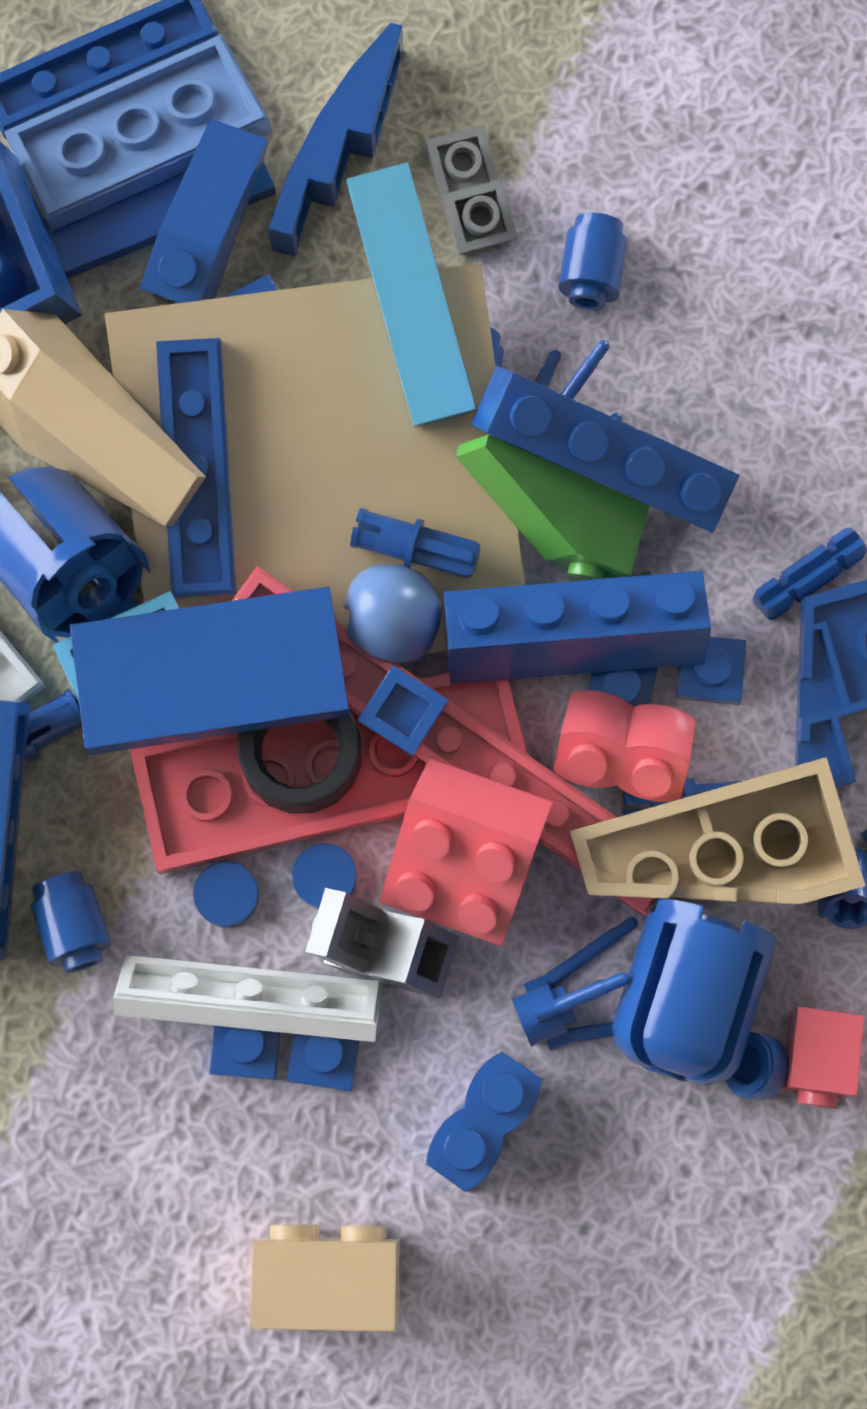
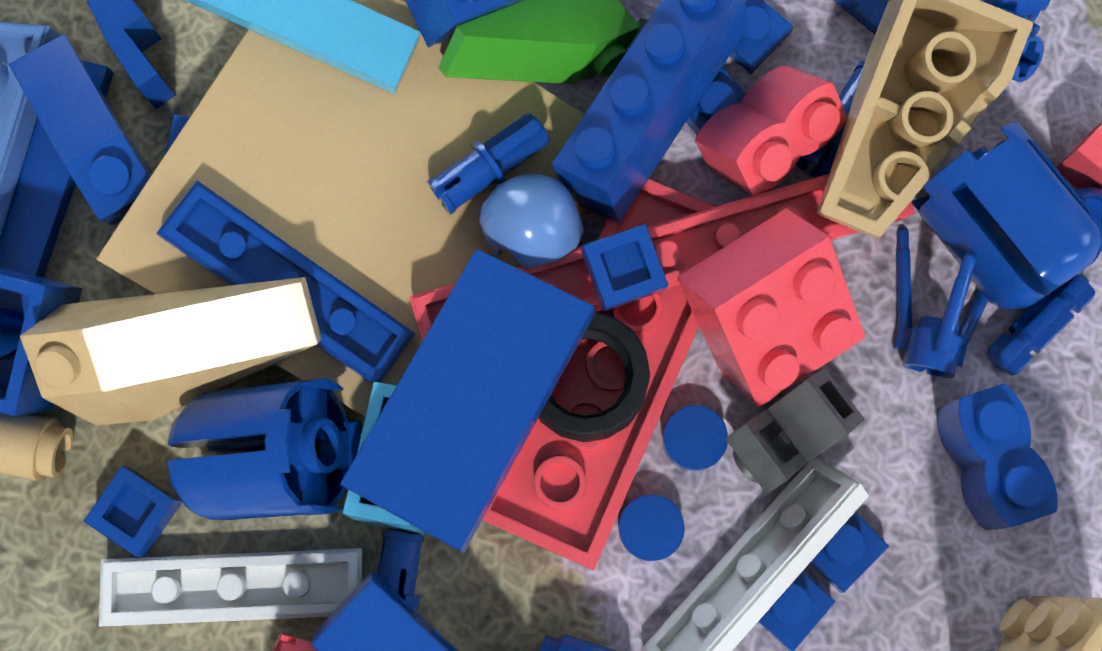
camera: 50 degrees left, 0 degrees up
(635, 1089) = (1040, 325): none -> blue axle

